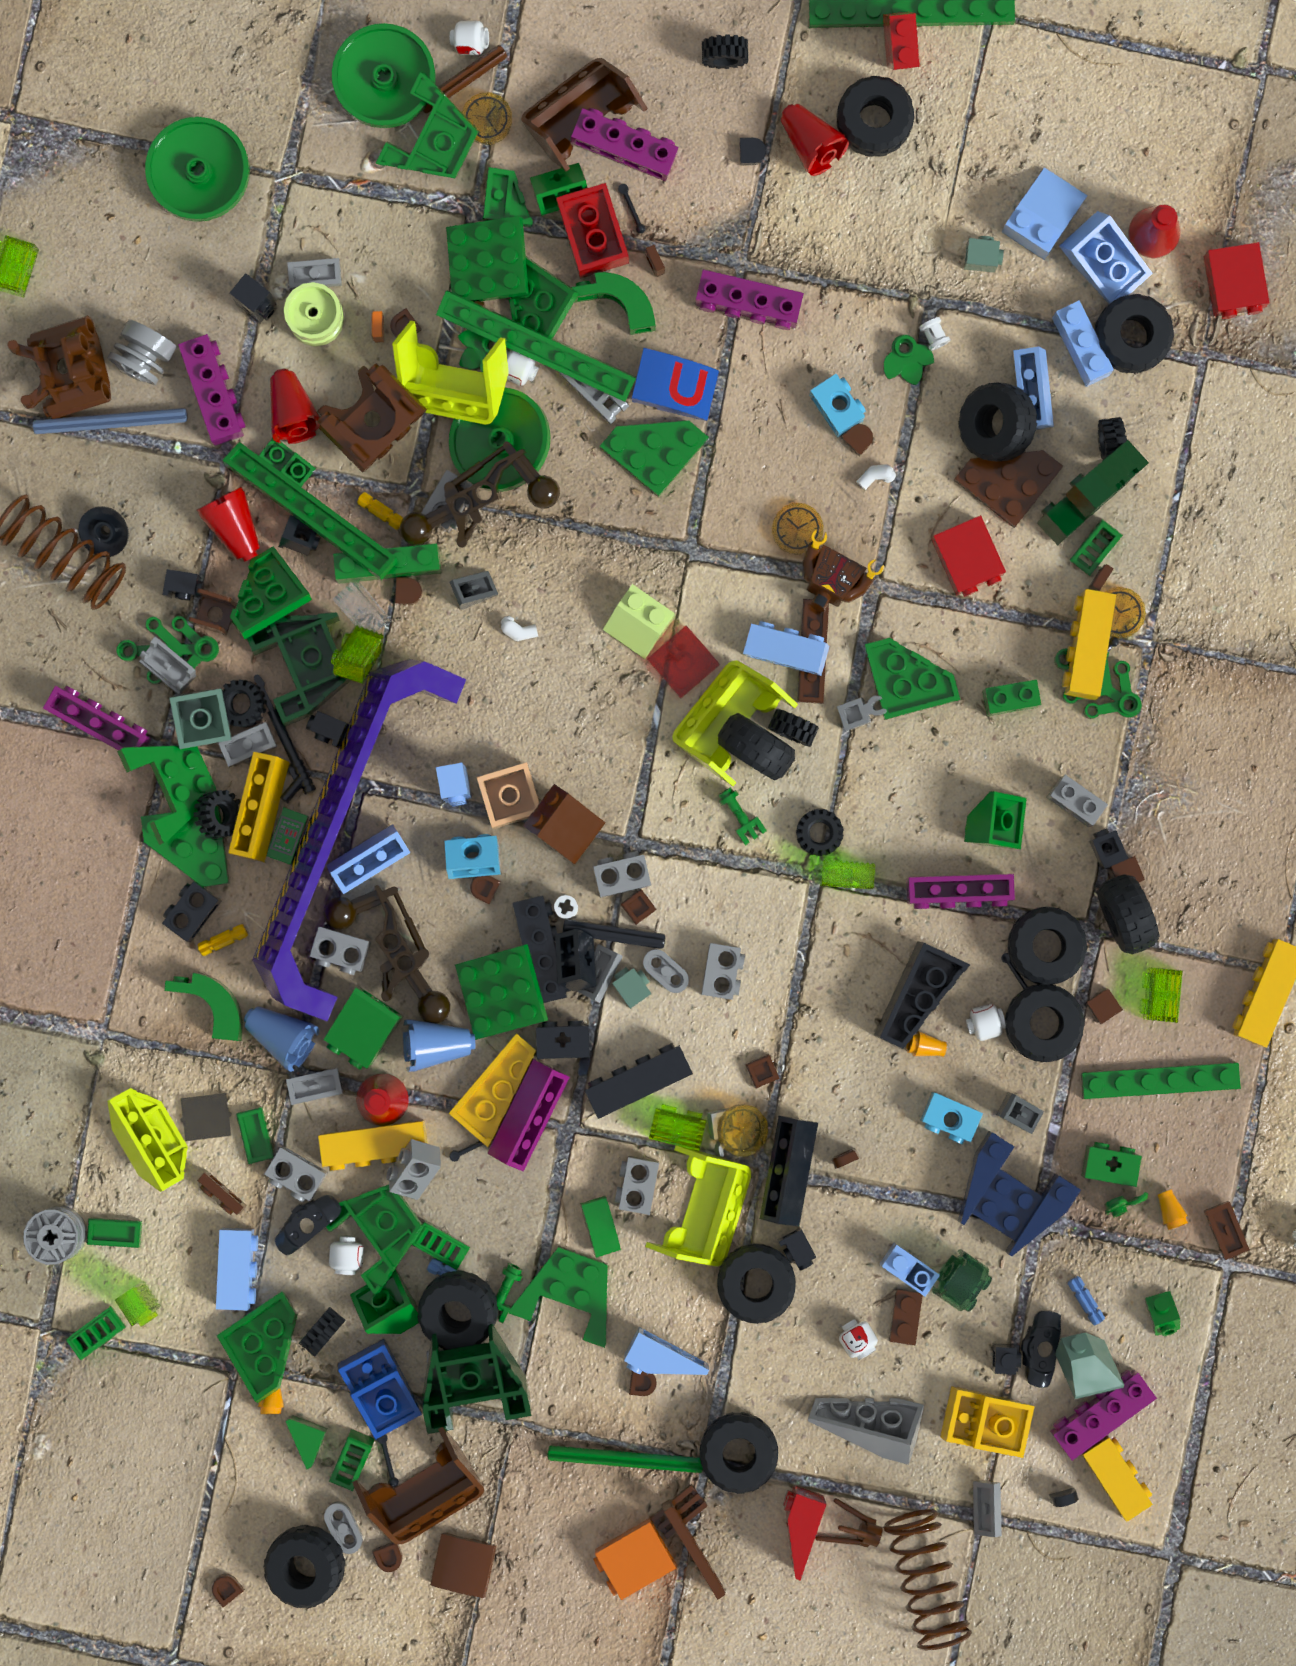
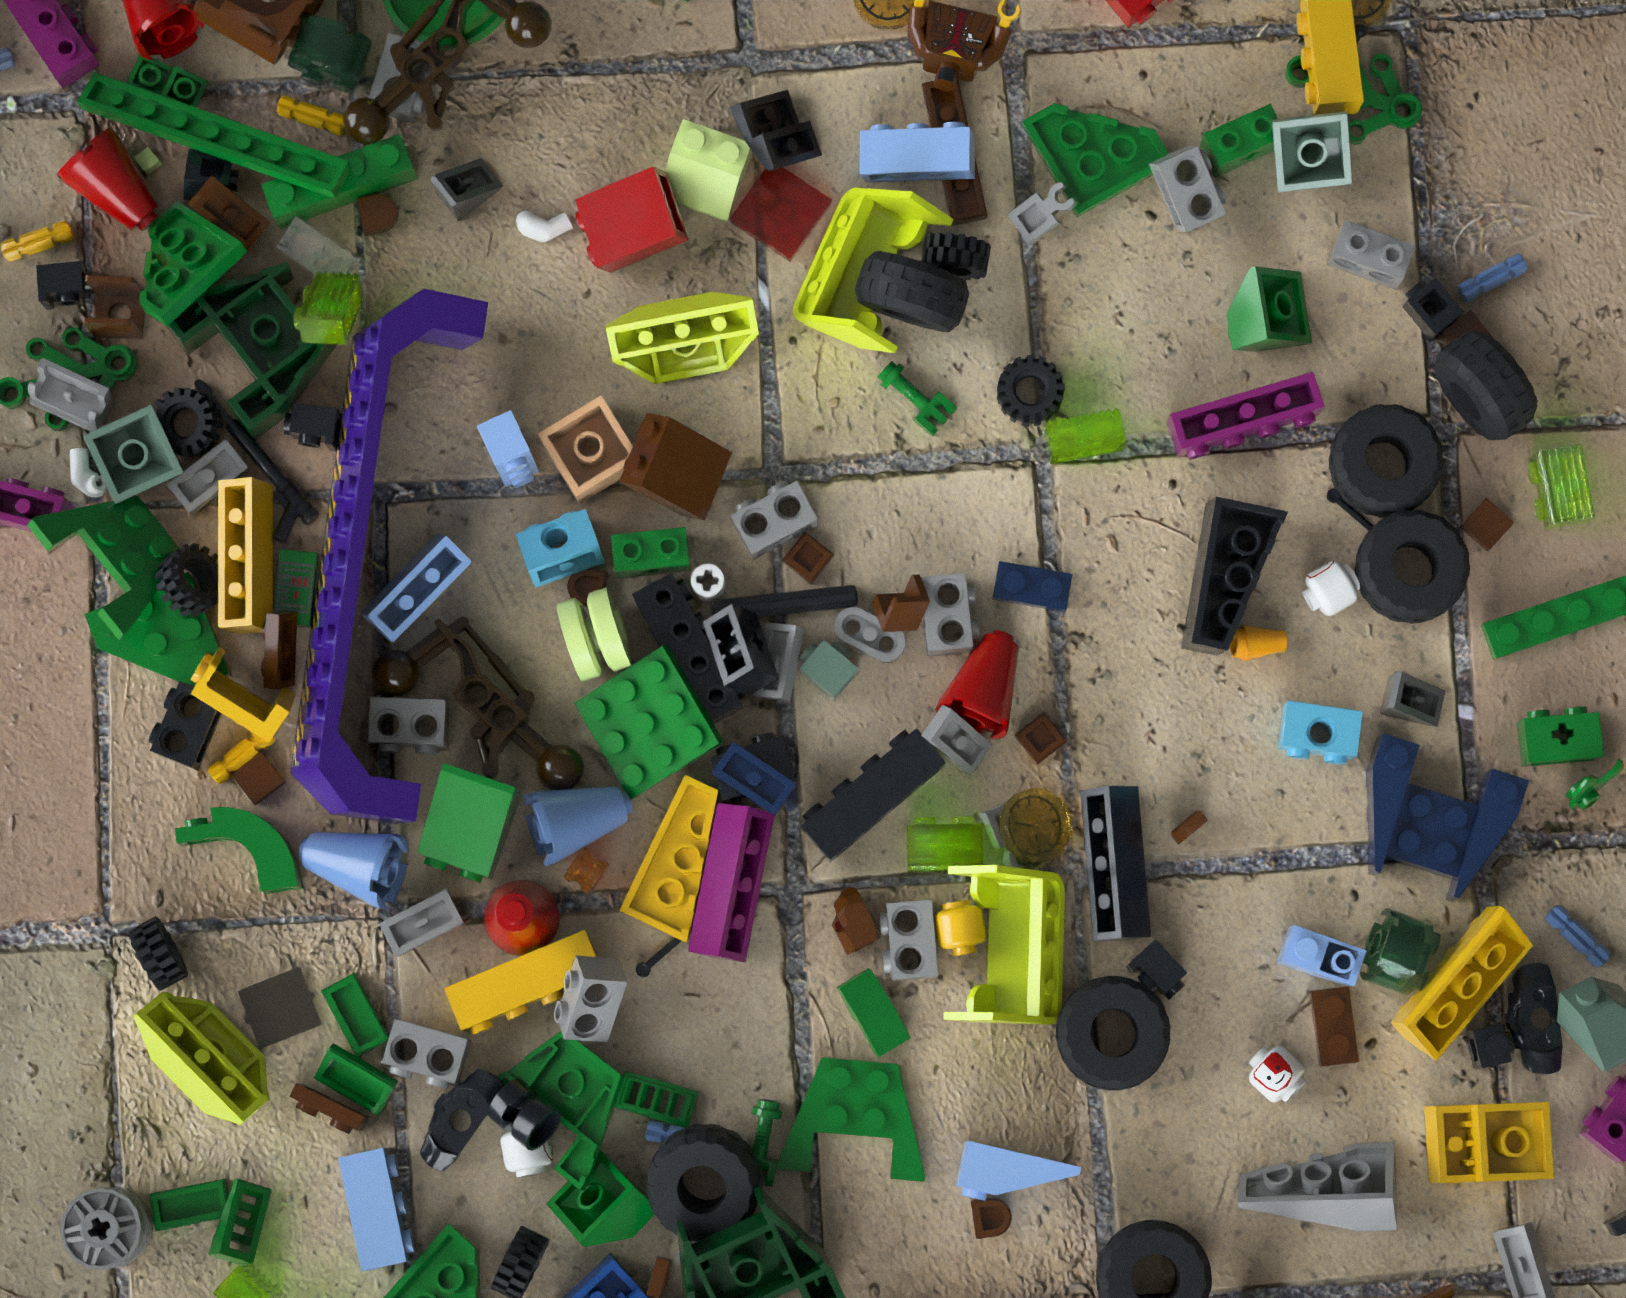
camera: 15 degrees left, 5 degrees down
(133, 1061) = (157, 953): none -> black tyre
(137, 1249) = (224, 1231): none -> green slope
(162, 720) = (82, 476): none -> white arm
(171, 549) = (37, 240): none -> yellow axle
(229, 907) = (238, 701): none -> yellow panel
(230, 959) = (258, 778): none -> reddish brown tile
(244, 1179) = (355, 1079): none -> green tile
(260, 512) = (147, 160): none -> yellowish green piece
(266, 876) = (280, 649): none -> reddish brown plate
(306, 566) = (229, 212): none -> reddish brown plate
(351, 1237) = (524, 1114): none -> black wheel
(402, 473) = (329, 53): none -> clear green brick
(412, 1364) = (659, 1277): none -> reddish brown tile
(433, 1080) = (586, 871): none -> clear orange wheel
(480, 925) = (599, 632): none -> yellowish green wheel
(532, 876) = (650, 552): none -> green brick
(561, 1051) = (754, 778): none -> dark blue plate
(578, 644) = (630, 220): none -> red brick
(593, 732) = (683, 336): none -> neon yellow wedge
(603, 1162) = (853, 922): none -> reddish brown rock
(673, 1185) = (959, 927): none -> yellow head
(692, 960) = (902, 610): none -> reddish brown panel
(693, 608) = (774, 131): none -> black slope
(704, 1059) = (956, 740): none -> light grey plate
(733, 1028) = (985, 685): none -> red cone
(784, 966) = (1032, 586): none -> dark blue plate
(958, 723) = (1180, 193): none -> light grey brick
(998, 1312) = (1462, 982): none -> yellow slope
(1055, 721) = (1312, 151): none -> sand green slope
(1156, 837) = (1492, 278): none -> medium blue axle

